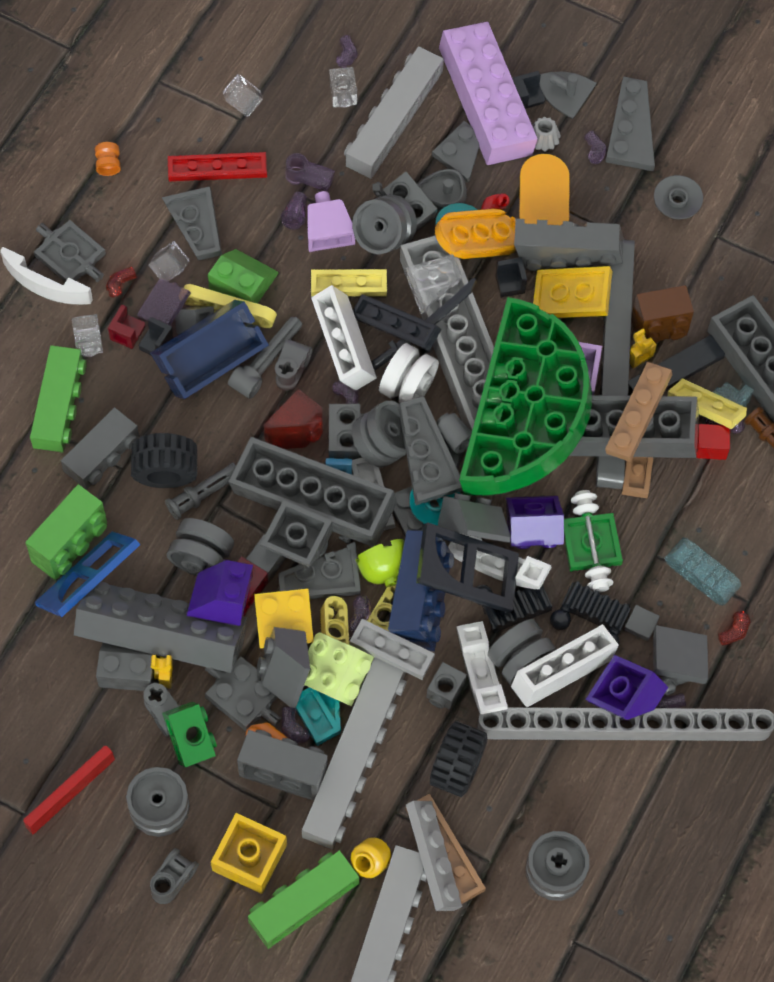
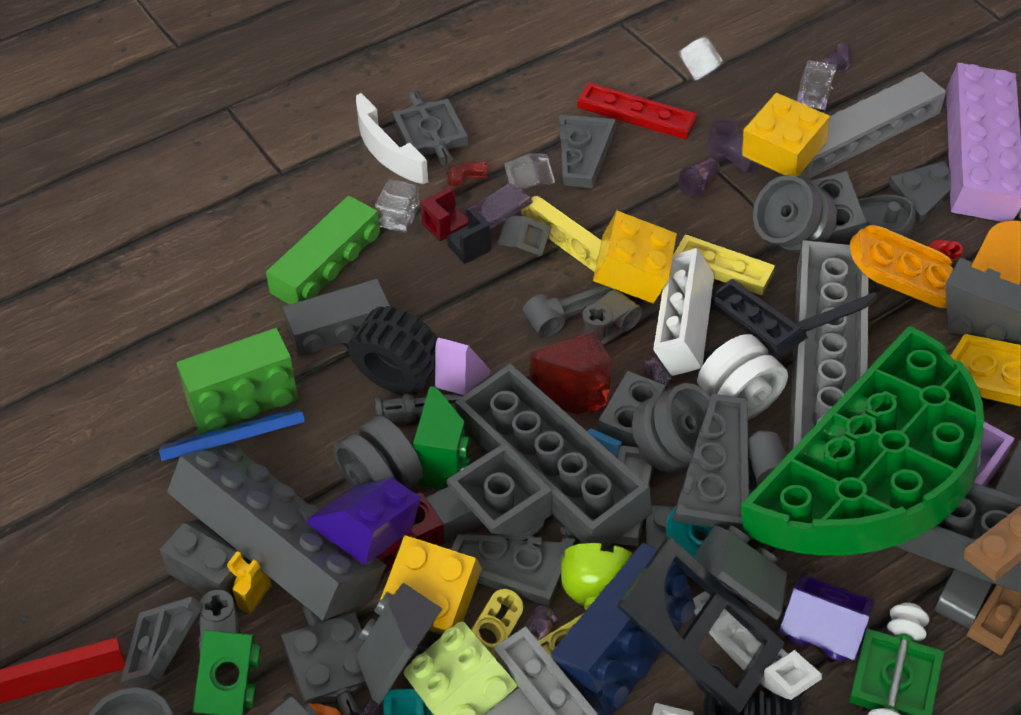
camera: 30 degrees right, 15 degrees down
(107, 156) = (522, 62): orange wheel -> none
(129, 734) = (157, 639): none -> dark grey wing
(209, 349) = (519, 261): dark blue piece -> none
(212, 454) = (458, 367): none -> lavender slope
(235, 514) = (440, 441): none -> green slope
(241, 276) = (592, 206): bright green slope -> none
(290, 310) = (635, 257): none -> yellow brick
(328, 224) = (728, 200): lavender torso -> none
(348, 157) = (785, 135): none -> yellow brick
(432, 280) = (824, 285): clear wing -> none
(511, 277) = (930, 319): black panel -> none

